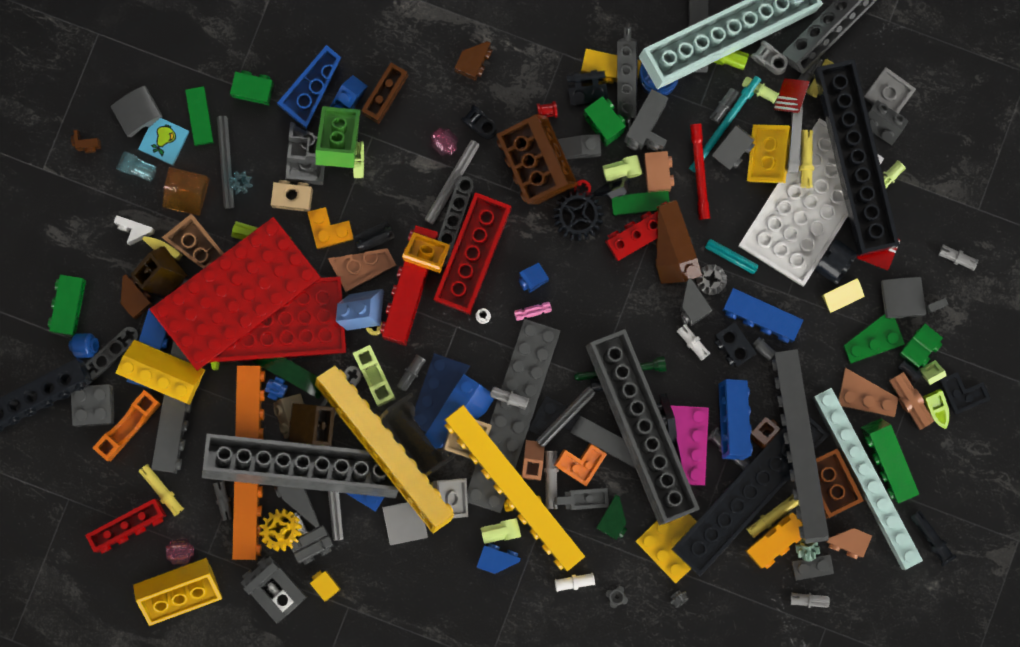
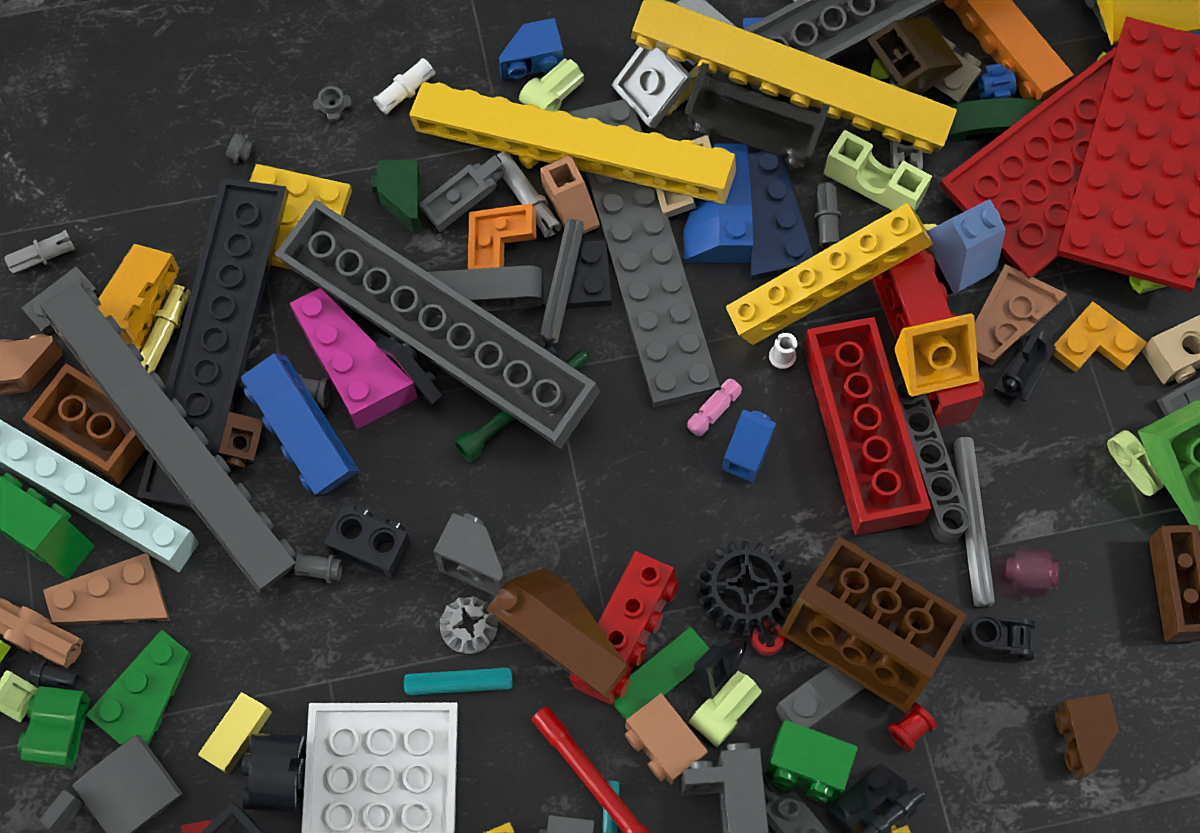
camera: 145 degrees right, 15 degrees down
(442, 329) = (829, 274): none -> yellow brick
(509, 397) = (663, 255): light grey axle -> none
(693, 342) = (434, 507): white pin -> none
(762, 315) = (349, 614): blue brick -> none

